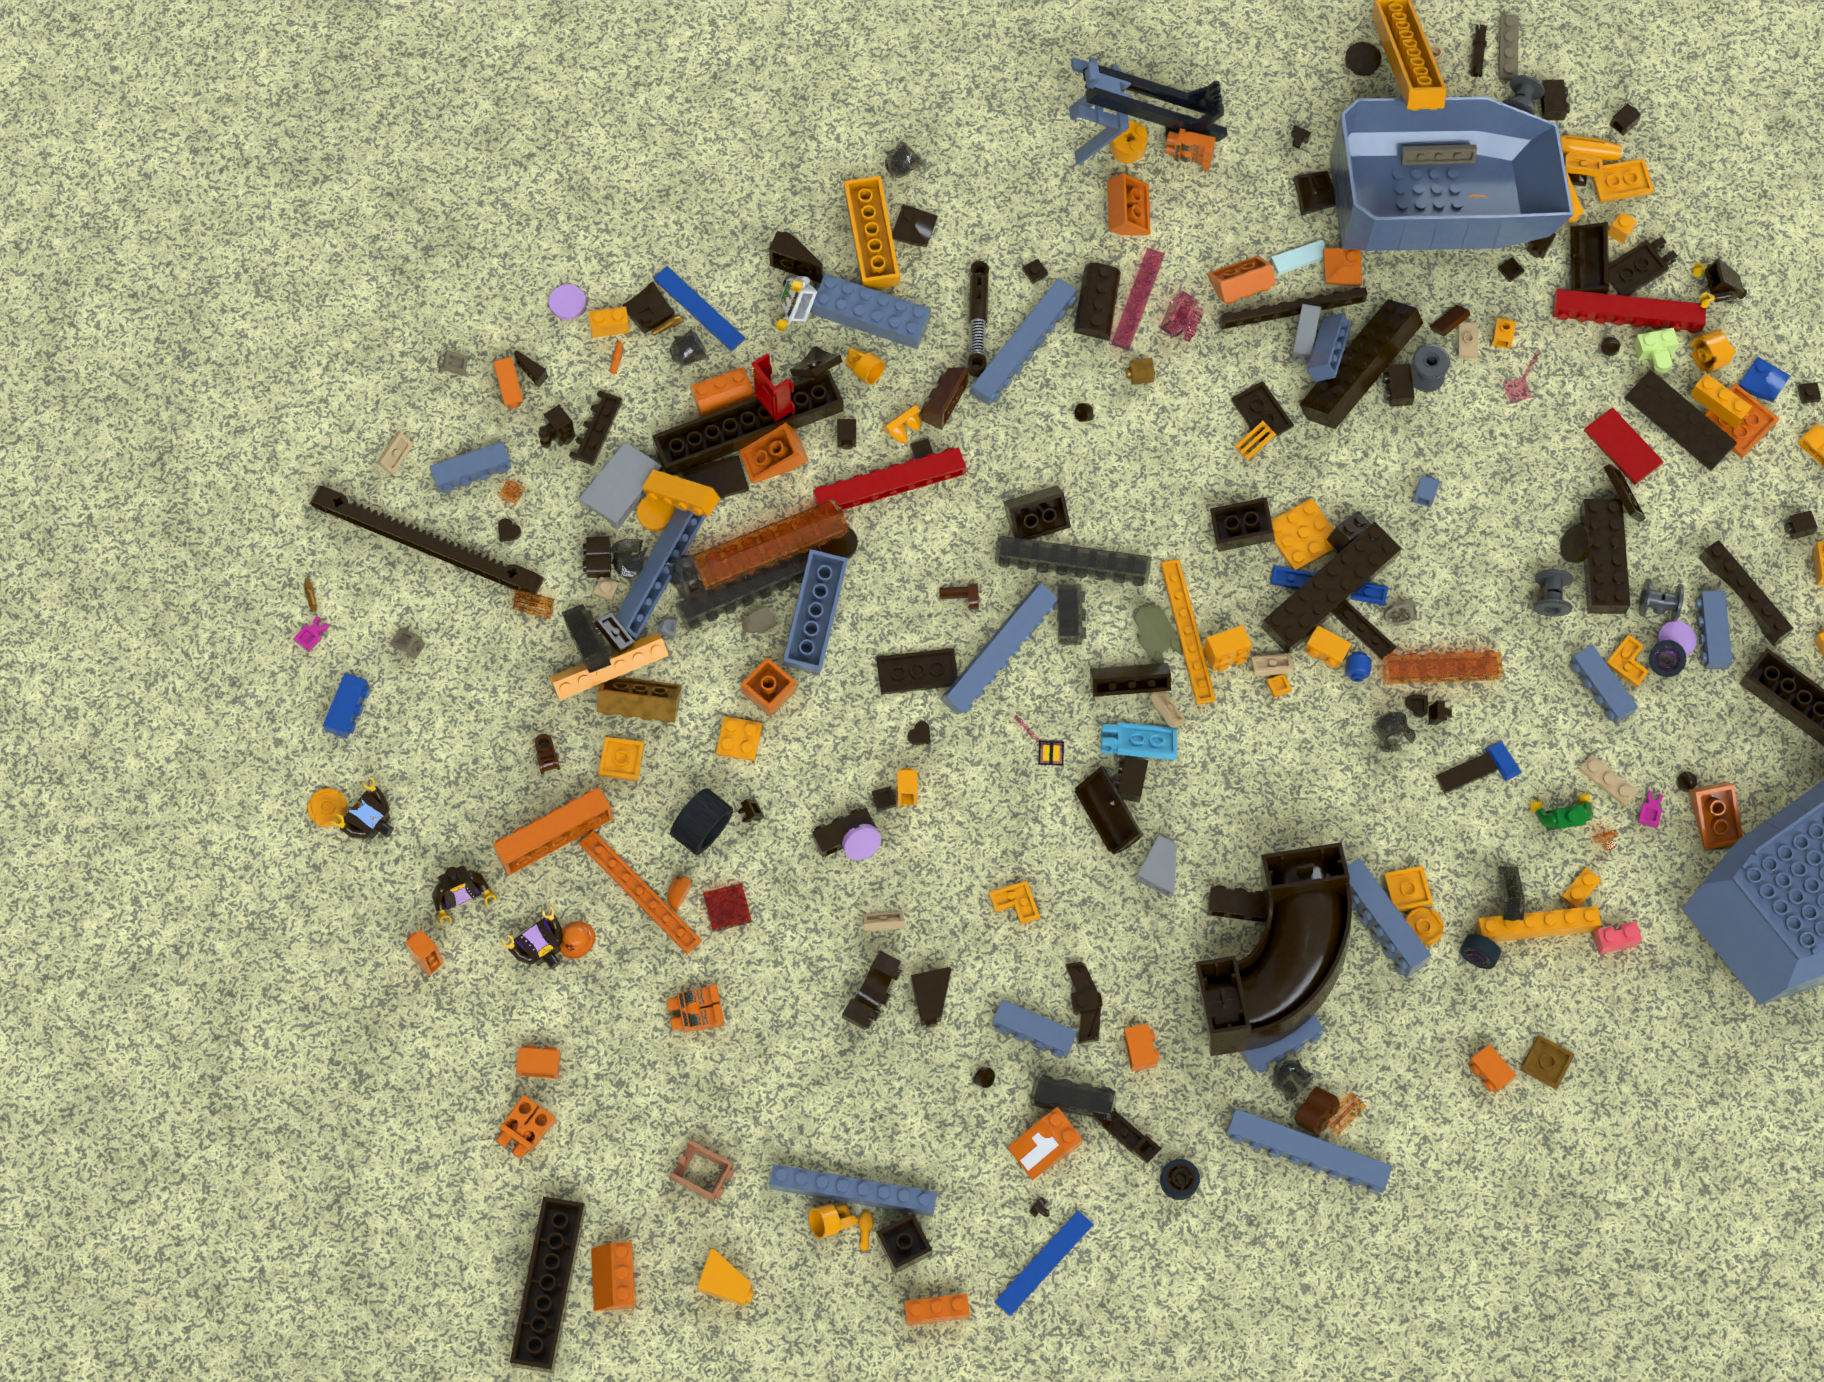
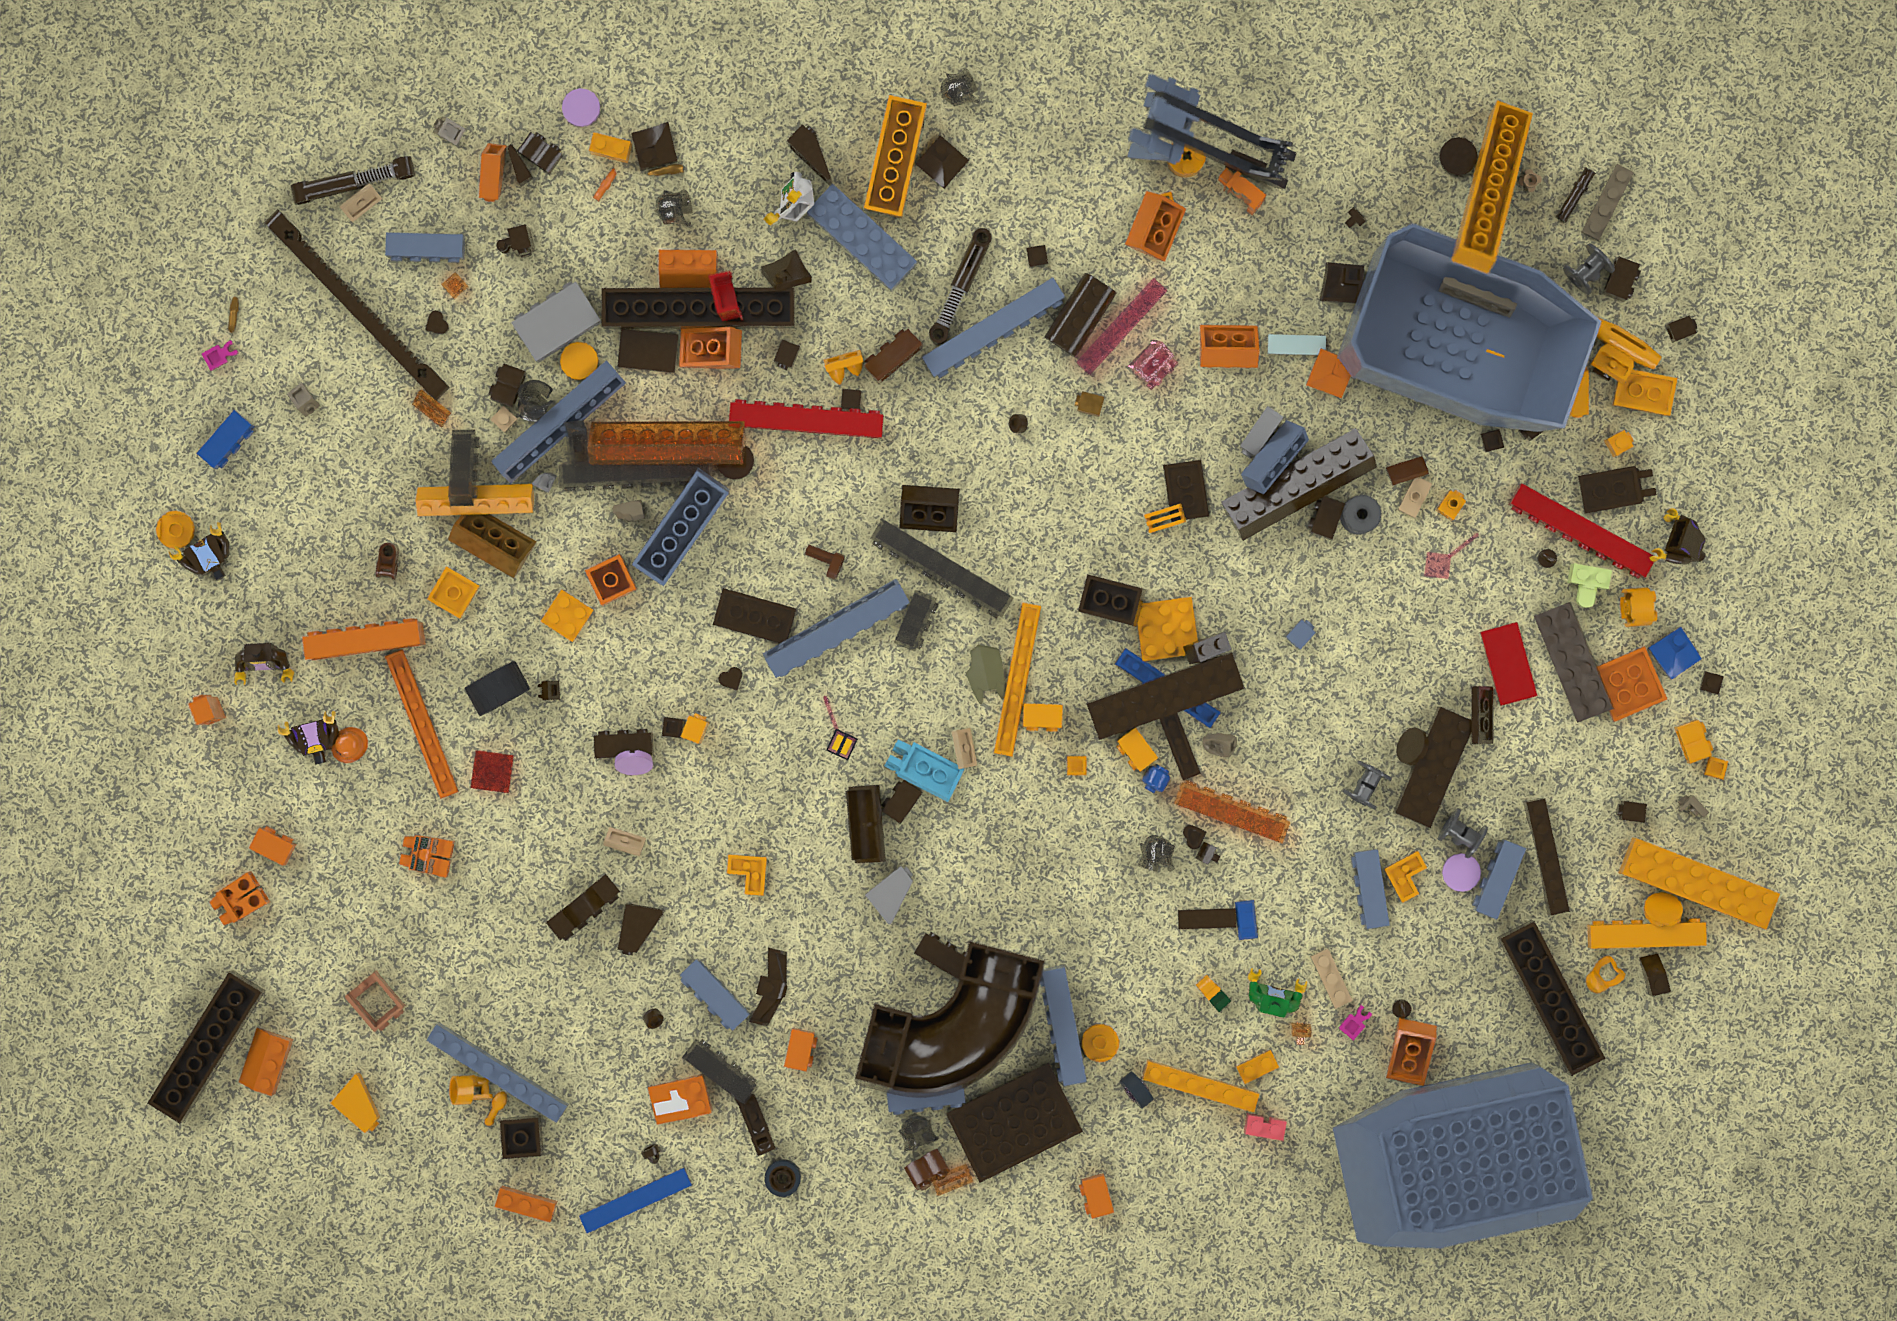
camera: 30 degrees right, 20 degrees up
(340, 462) = (307, 191): none -> dark brown piece
(546, 350) = (540, 153): none -> dark brown brick
(598, 428) = (559, 253): dark brown hinge -> none
(614, 632) = (489, 474): plate -> none
(677, 891) = (455, 738): orange brick -> none
(680, 493) = (604, 360): light orange brick -> none
(699, 308) = (702, 165): blue tile -> none
(865, 366) = (832, 296): light orange piece -> none
(1130, 679) = (941, 707): dark brown brick -> none
(1272, 664) = (1078, 745): tan plate -> none
(1288, 309) = (1271, 398): dark brown plate -> none
(1309, 1151) = (904, 1200): sand blue brick -> none
(1378, 1033) = (1014, 1122): none -> dark brown plate
(1408, 888) = (1101, 1004): light orange plate -> none
(1506, 836) = (1213, 993): none -> leg
(1510, 893) = (1186, 1051): clear smoke brick -> none
(1547, 1062) = (1150, 1208): pearl gold tile -> none
(1590, 258) = (1570, 464): dark brown container -> none
(1659, 666) = (1448, 883): wheel -> none
(1720, 401) = (1618, 662): light orange brick -> none

